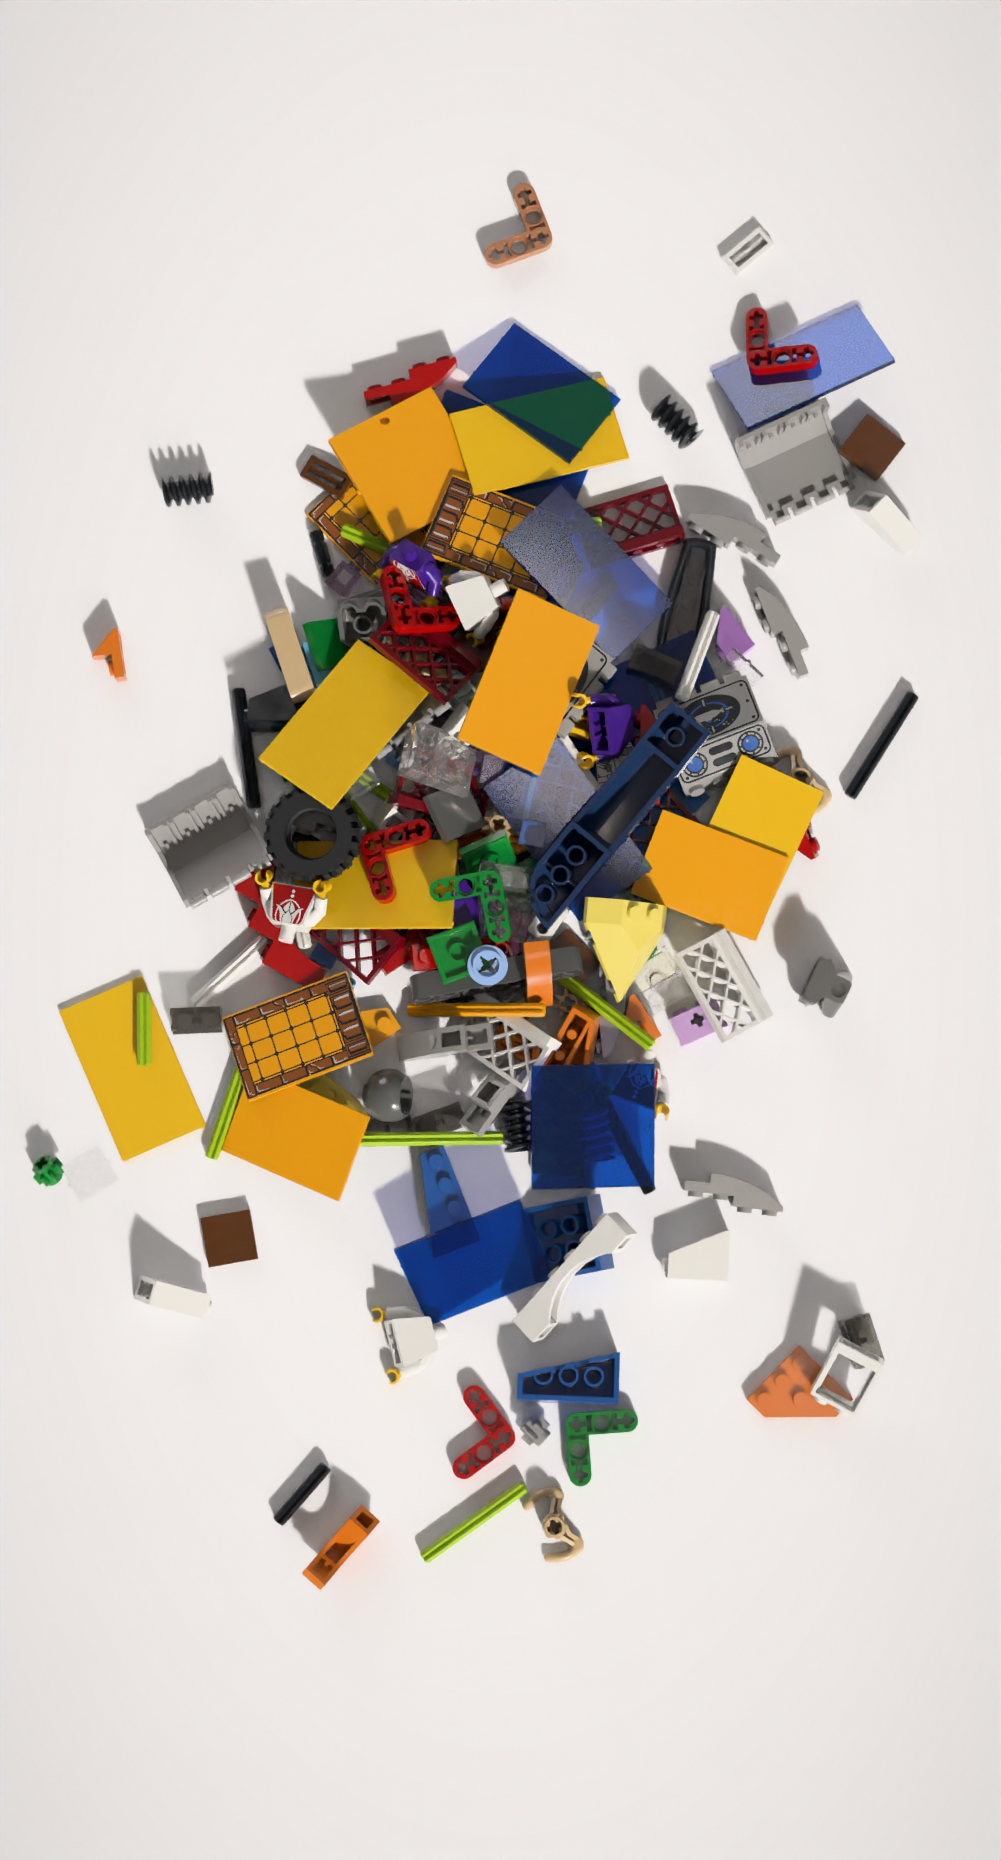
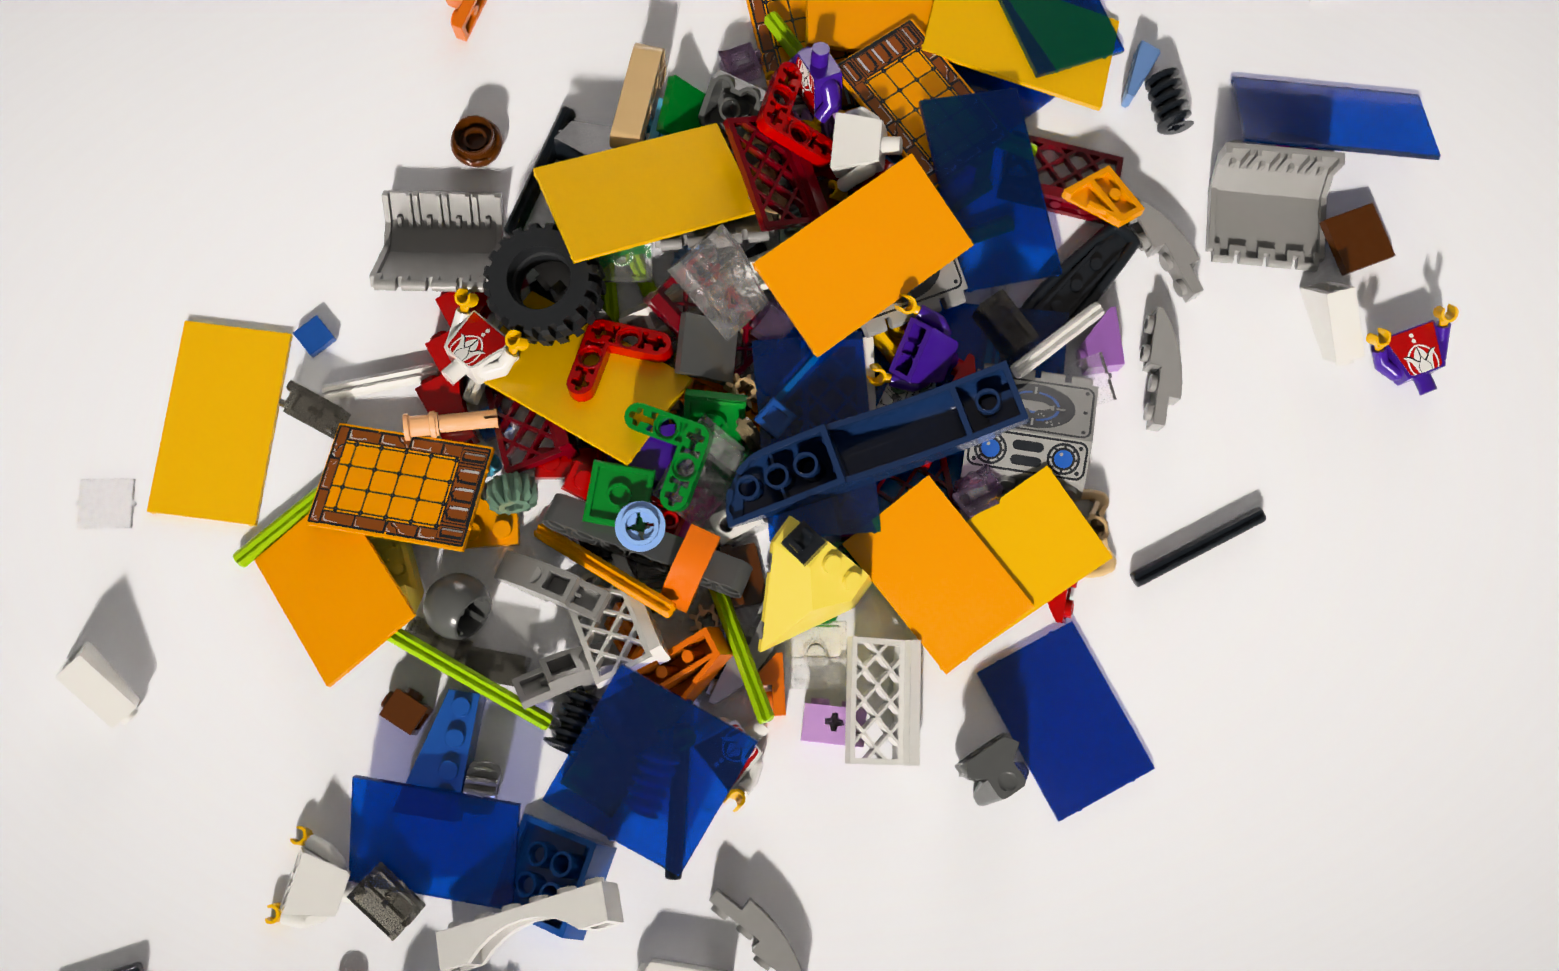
camera: 25 degrees right, 5 degrees down
(47, 1170) = (61, 473): green gear -> none
(143, 1028) = (255, 387): lime axle -> none
(160, 967) = (314, 336): none -> blue tile
(186, 754) = (476, 141): none -> reddish brown piece
(229, 1238) = (201, 658): reddish brown tile -> none
(294, 979) = (435, 424): none -> light nougat pin
(322, 553) = (735, 25): black axle -> none
(377, 995) = (512, 493): none -> sand green gear
(396, 1187) = (406, 710): none -> reddish brown brick
(465, 1320) = (386, 901): none -> clear smoke hinge
(480, 1201) = (483, 779): none -> light grey gear
(520, 854) = (749, 433): none -> dark tan axle
(607, 910) = (804, 543): none -> black tile
(640, 405) = (1141, 65): none -> medium blue slope
(671, 529) = (1105, 197): none -> light orange wing
(703, 800) = (977, 491): none -> window
(764, 351) = (1301, 82): red beam -> none
(857, 924) = (1065, 721): none -> clear blue piece
(956, 511) = (1415, 351): none -> torso

